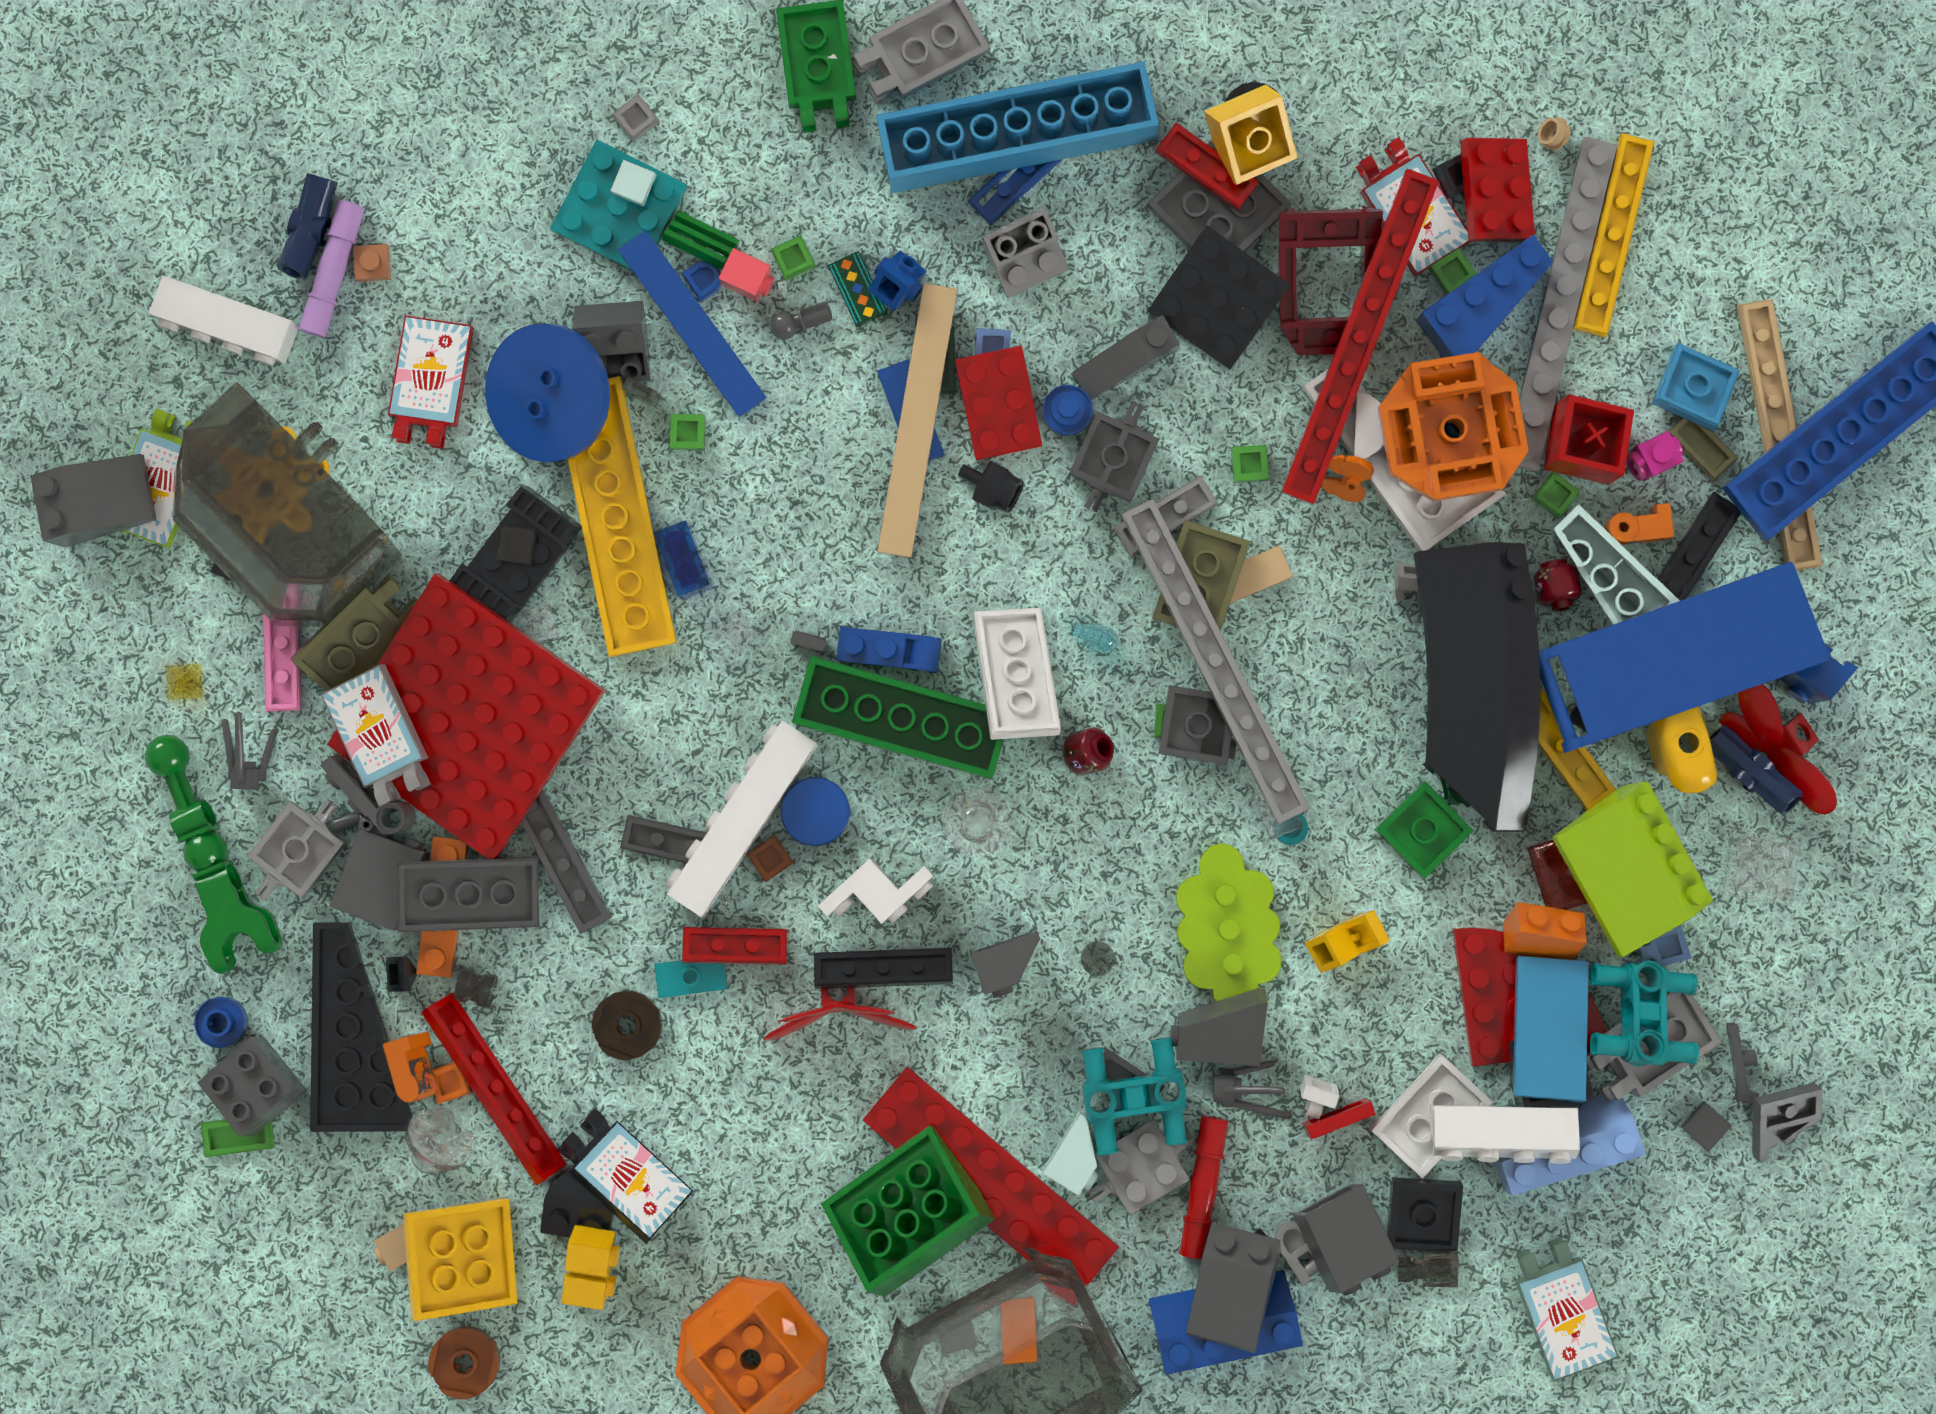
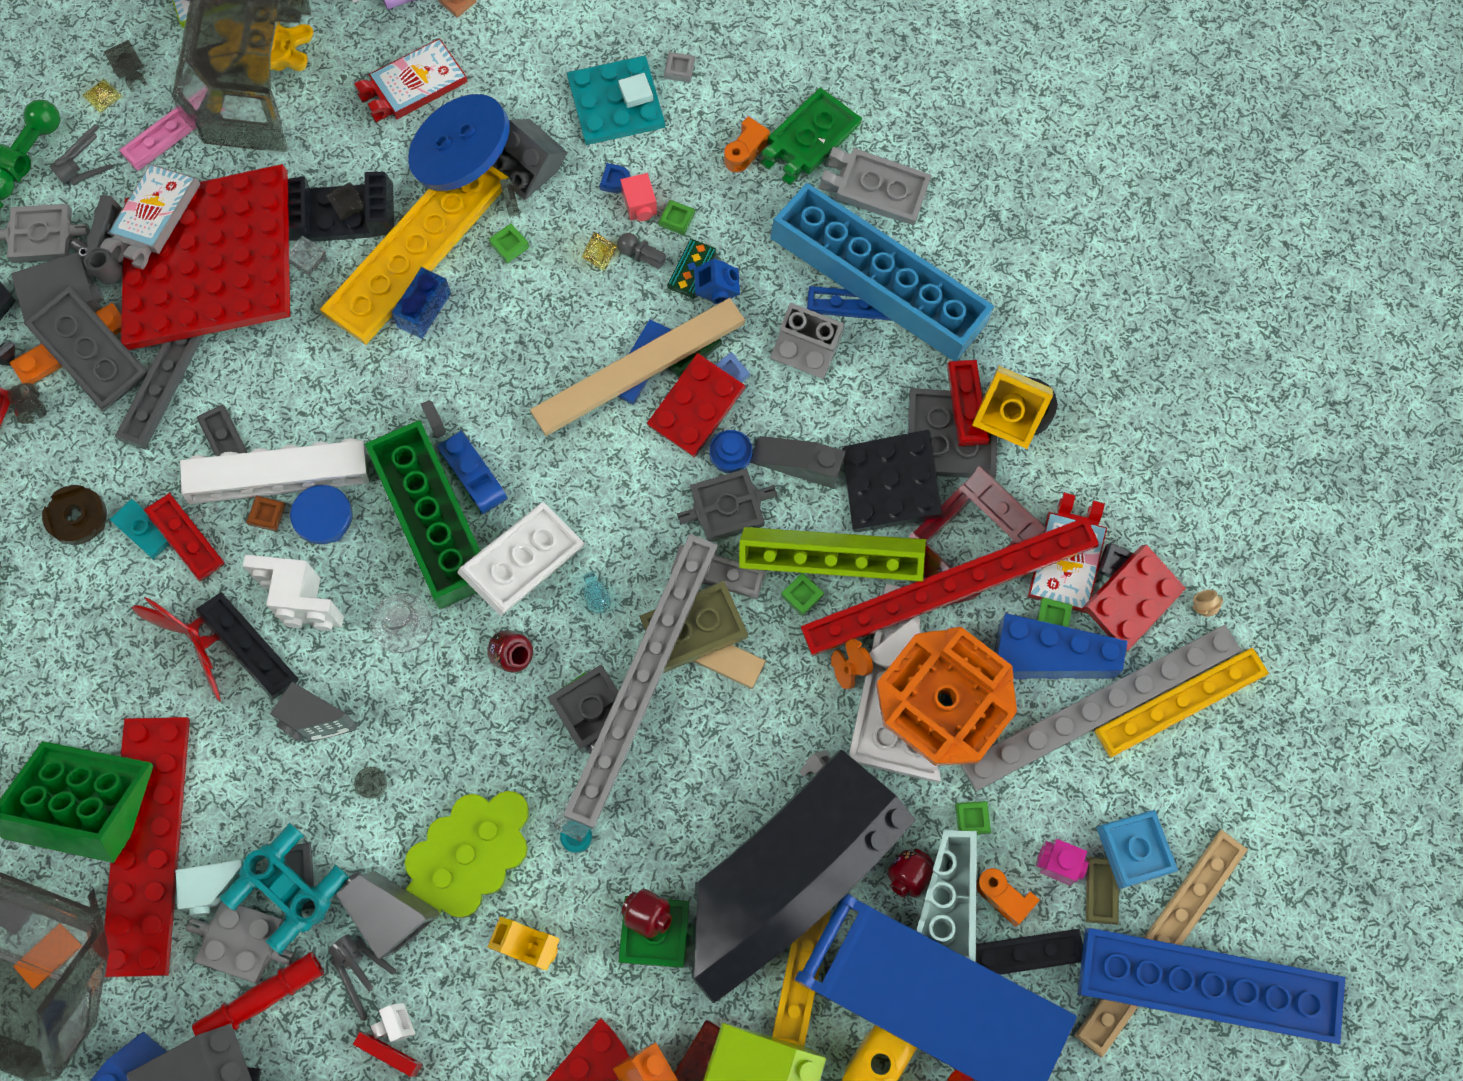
camera: 45 degrees right, 15 degrees down
(168, 632) = (126, 63): none -> clear smoke plate
(354, 636) = (206, 154): olive tile -> none
(692, 323) = (579, 192): blue tile -> none
(703, 237) = (642, 154): green tile -> none
(769, 358) = (599, 251): none -> clear yellow slope
(781, 142) = (747, 147): none -> orange leg
(994, 487) = (639, 449): black piece -> none
(1244, 408) = (832, 553): none -> lime brick
(1411, 823) = (646, 913): none -> dark red head
(1589, 439) = (1029, 803): red brick -> none

